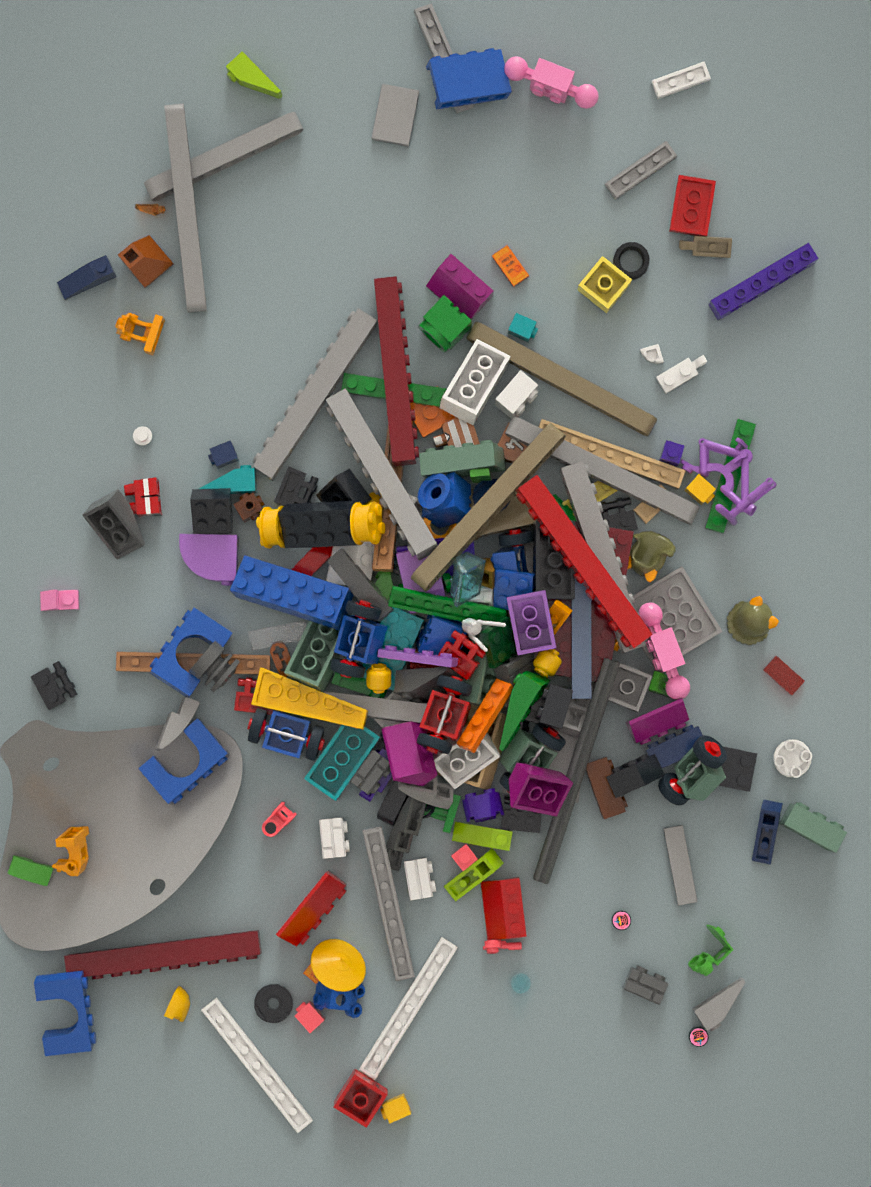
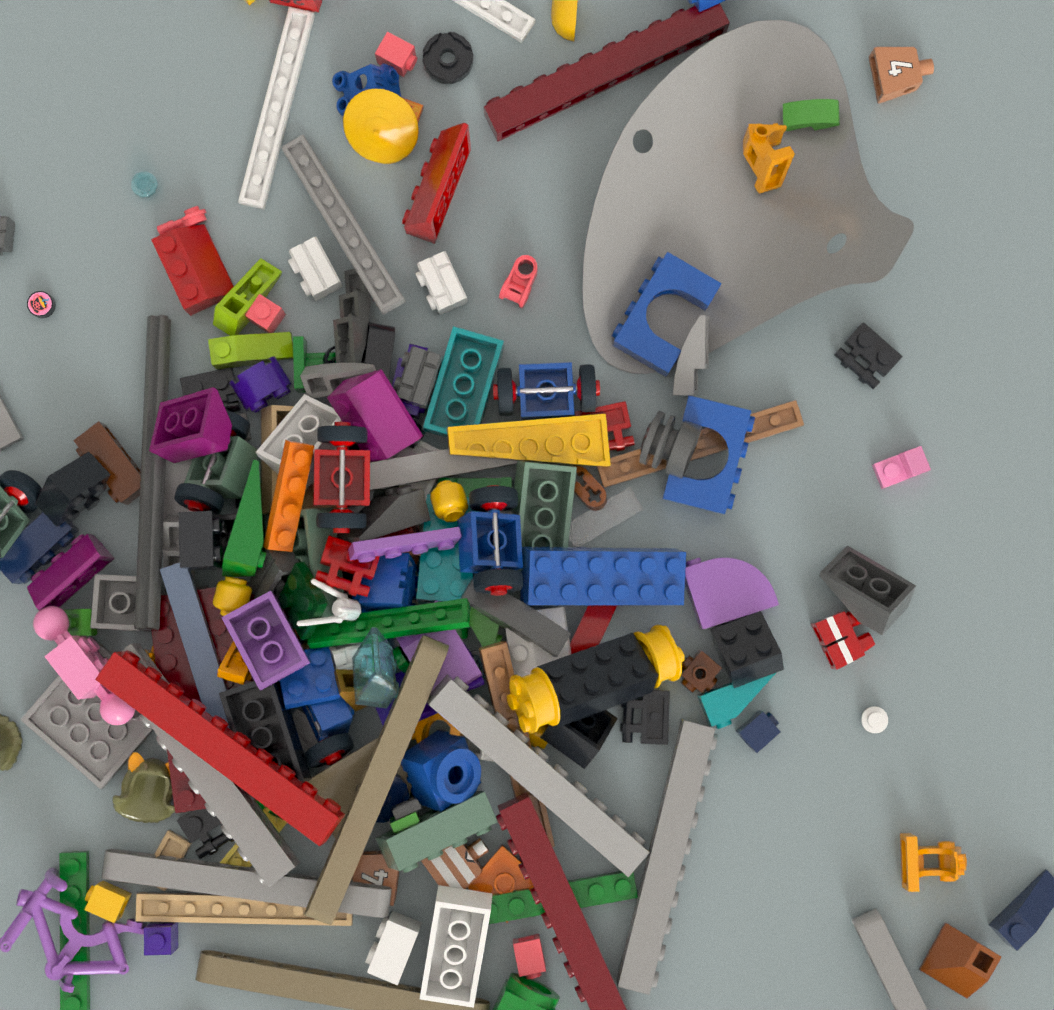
camera: 155 degrees right, 0 degrees up
(429, 359) = (529, 956): none -> coral brick
(478, 482) = (405, 807): none -> dark grey tile

